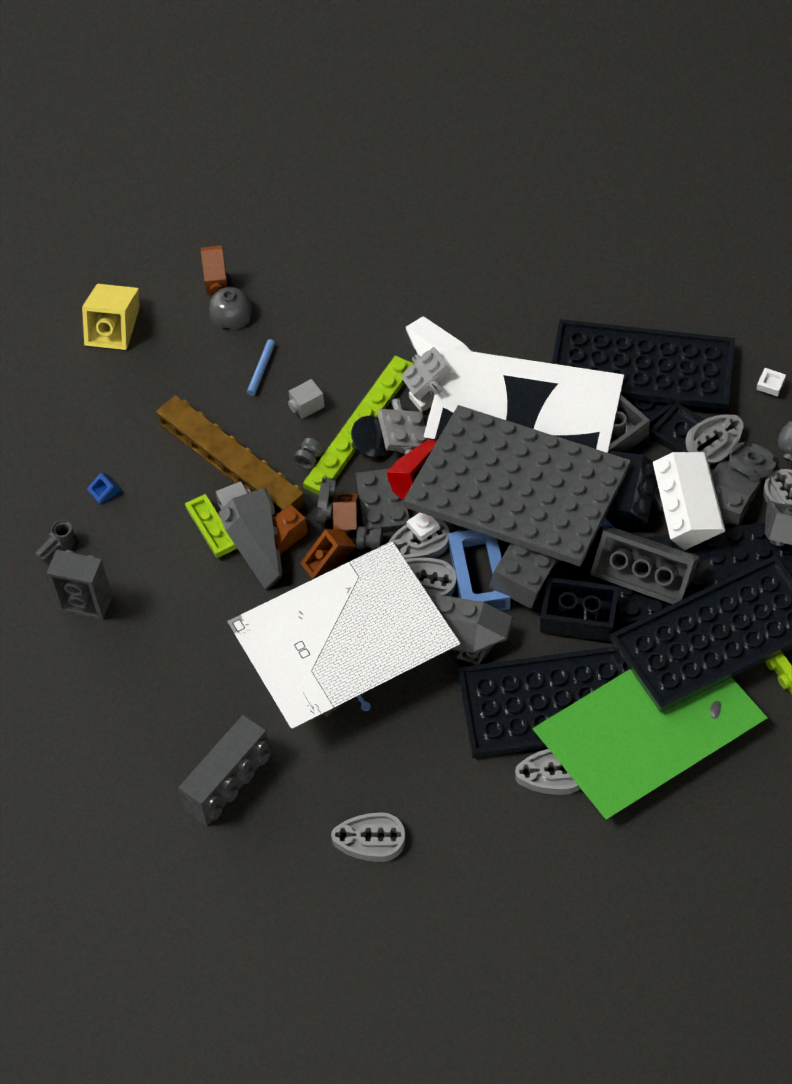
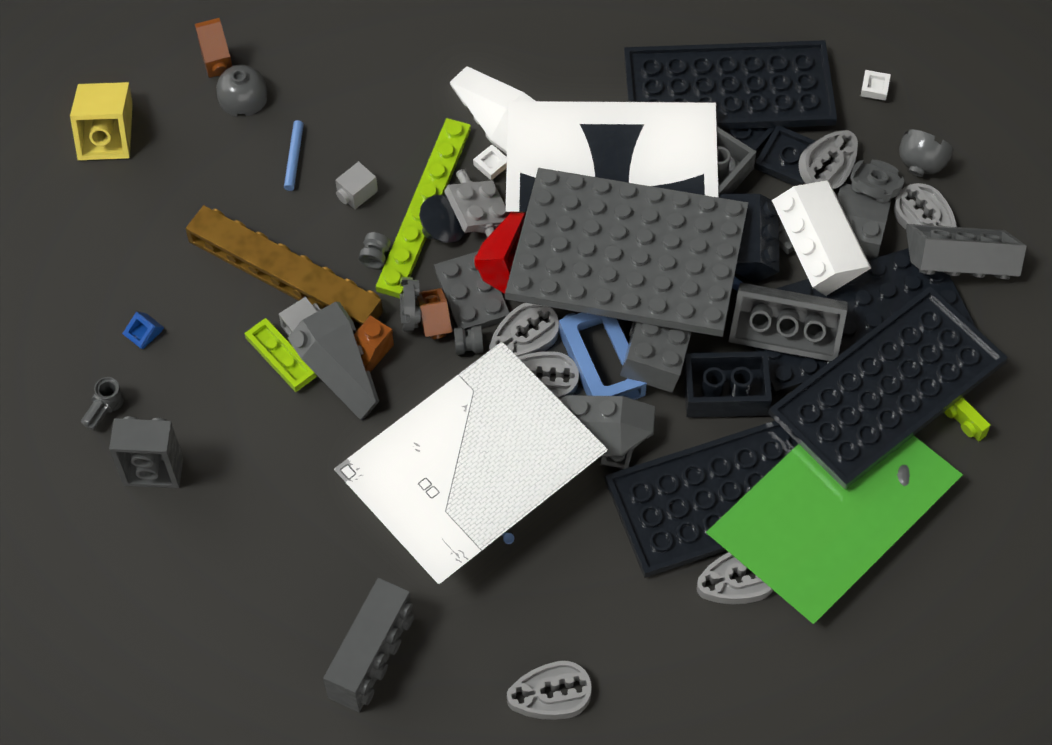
camera: 15 degrees left, 5 degrees up
(328, 552) = (424, 365): dark orange slope -> none
(423, 526) = (527, 316): white plate -> none
(426, 373) = (491, 135): light grey plate -> none

